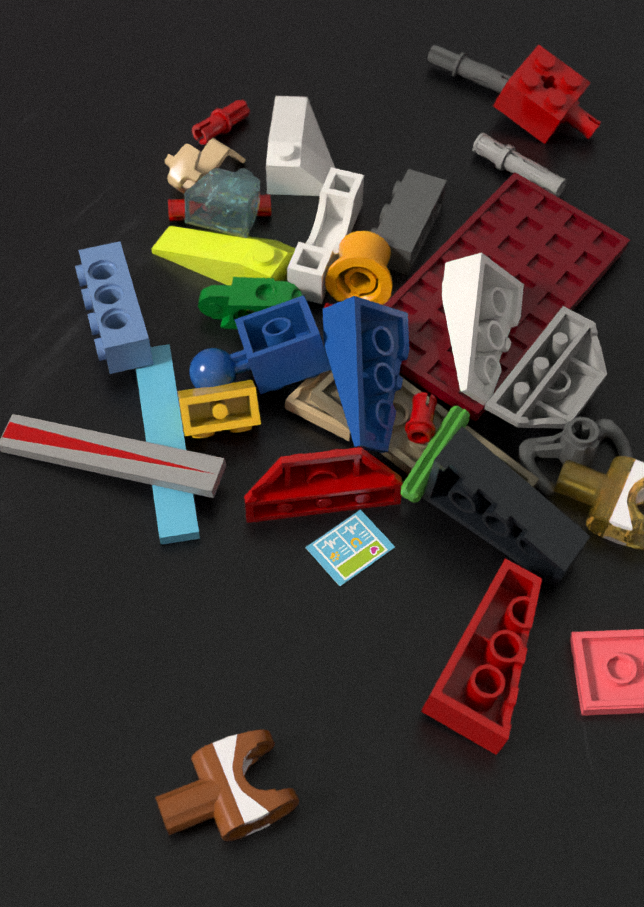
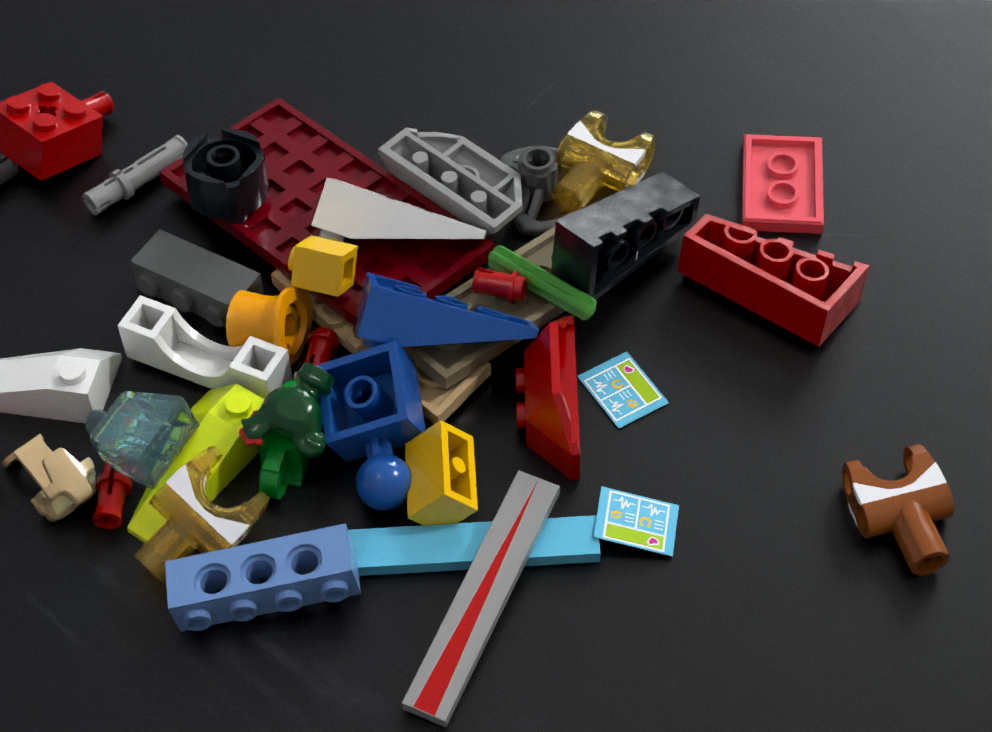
camera: 80 degrees left, 5 degrees down
(165, 256) = (194, 519): none -> clear yellow connector
(199, 566) = (636, 521): none -> sticker
(251, 288) = (293, 413): none -> dark green animal
(405, 280) = (323, 265): none -> yellow brick
(499, 202) = (226, 175): none -> black brick

